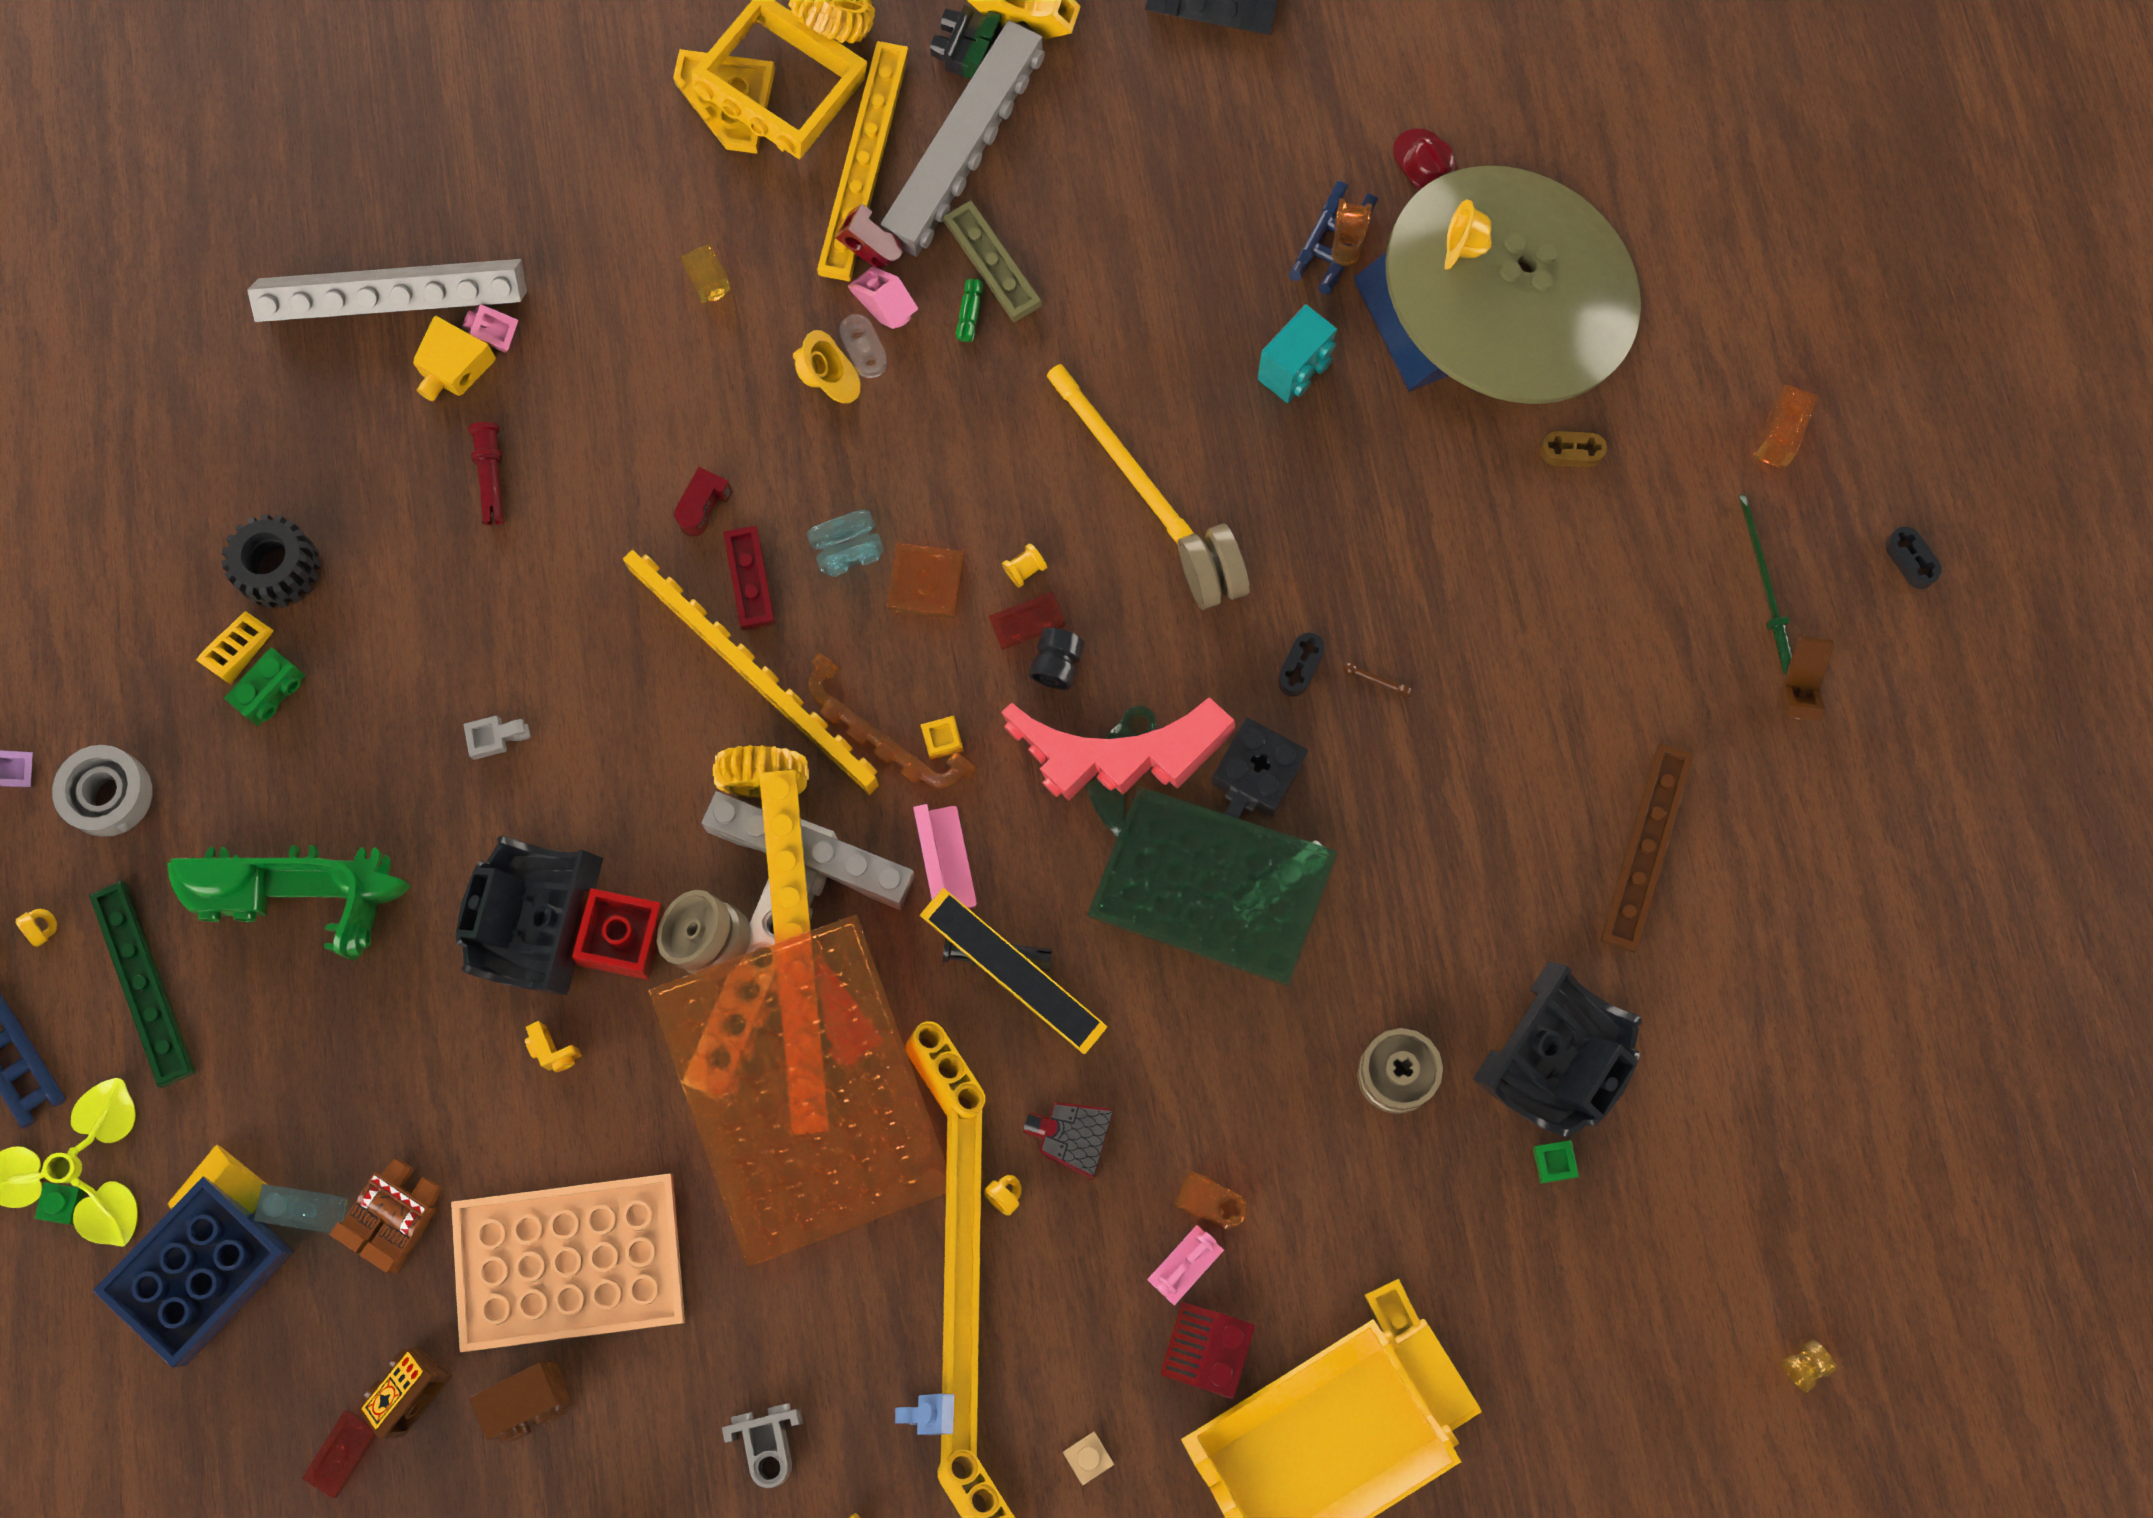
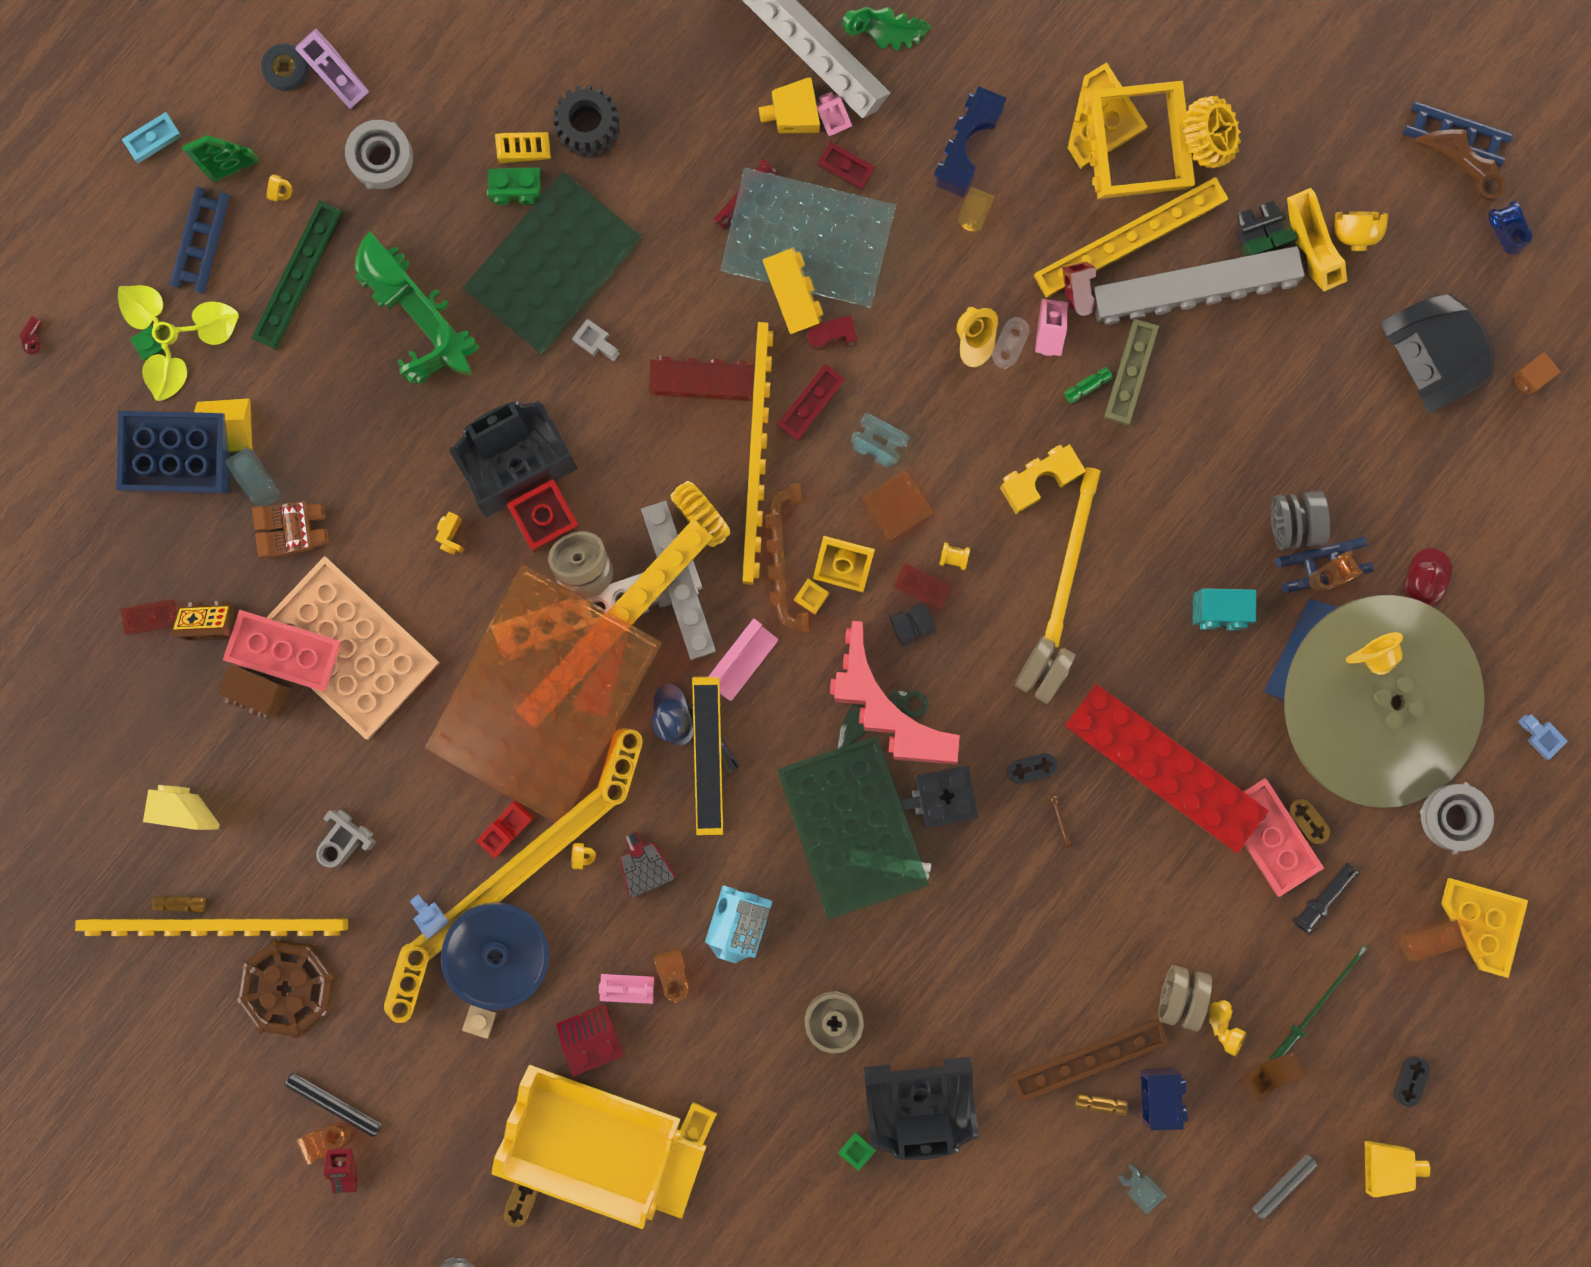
camera: 50 degrees right, 10 degrees up
(376, 716) = (552, 263): none -> clear green plate
(455, 213) = (885, 27): none -> green plant
(507, 1332) = (282, 650): none -> coral plate
(551, 357) = (846, 166): none -> dark red plate
(585, 445) = (834, 230): none -> clear light blue plate
(622, 499) = (793, 290): none -> yellow brick
(623, 196) = (982, 114): none -> clear blue arch
(629, 662) = (701, 379): none -> clear red brick
(907, 1254) = (505, 829): none -> red slope
(936, 675) = (843, 564): none -> yellow slope
(940, 974) = (672, 716): none -> dark blue piece
(1025, 395) = (1061, 465): none -> yellow arch
(1032, 1377) = (495, 956): none -> dark blue dish
(1215, 1085) = (737, 924): none -> medium azure cylinder
(1272, 219) = (1300, 520): none -> dark grey wheel
(1410, 535) = (1167, 768): none -> red plate
(1561, 493) = (1278, 843): none -> coral plate
(1659, 698) = (1185, 998): none -> dark tan wheel
(1667, 506) = (1318, 907): none -> black pin
(1668, 176) = (1544, 737): none -> medium blue plate
(1692, 288) = (1477, 811): none -> light grey piece
(1702, 873) = (1101, 1104): none -> pearl gold axle
(1704, 685) = (1219, 1018): none -> yellow arm
(1746, 803) = (1162, 1099): none -> clear blue brick
(1811, 360) = (1487, 922): none -> yellow plate
(1826, 903) = (1143, 1191): none -> clear light blue plate
(1929, 761) = (1285, 1186): none -> dark grey axle
(1990, 644) = (1391, 1169): none -> yellow torso

